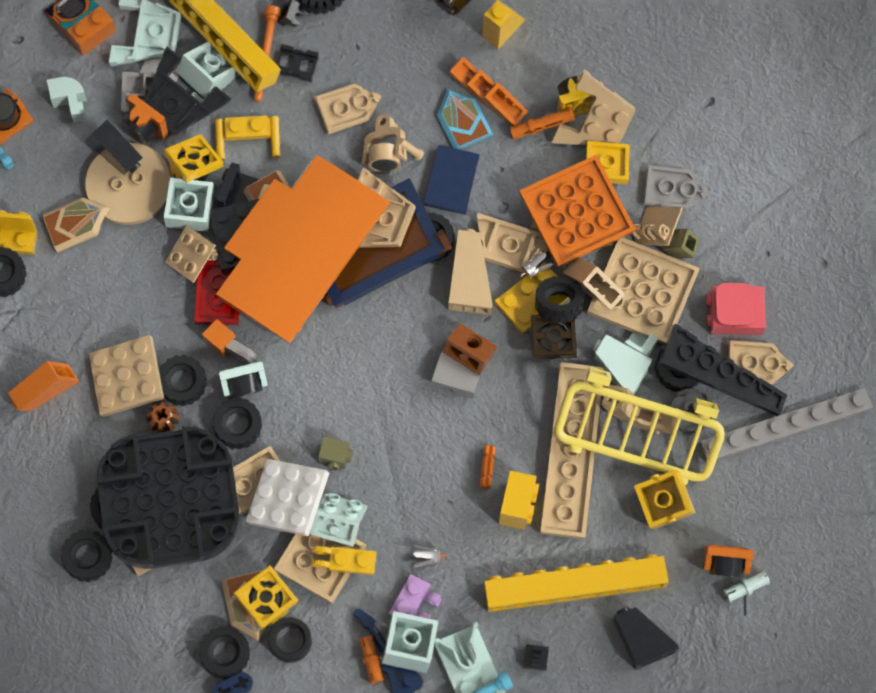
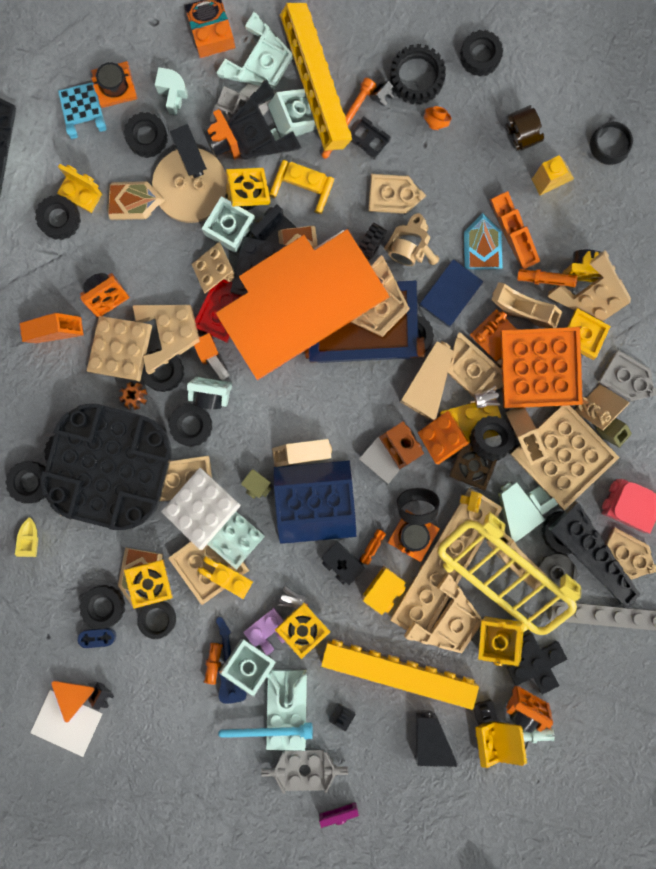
camera: 25 degrees right, 15 degrees up
(54, 137) = (139, 121): none -> black tyre
(85, 323) = (103, 293): none -> orange piece
(111, 617) = (27, 540): none -> light yellow plate
(178, 329) = (175, 329): none -> tan wing
(346, 156) = (372, 240): none -> black tyre
(358, 15) = (437, 117): none -> orange plate
(367, 401) = (301, 452): none -> slope
(406, 446) = (314, 502): none -> dark blue slope
(452, 580) = (302, 630): none -> yellow piece
(454, 487) = (353, 566): none -> black brick
(509, 202) = (489, 333): none -> orange hinge
(509, 322) = (443, 437): none -> orange plate
(511, 393) = (414, 495): none -> black tyre
(525, 434) = (414, 538): none -> piece
(530, 161) = (519, 305): none -> tan arch
(568, 372) = (473, 501): none -> yellow tile
(610, 508) = (454, 626): none -> tan wing
(684, 586) = (484, 712): none -> black tile
(715, 606) = (501, 744): none -> yellow bracket
(716, 512) = (537, 664): none -> black plate

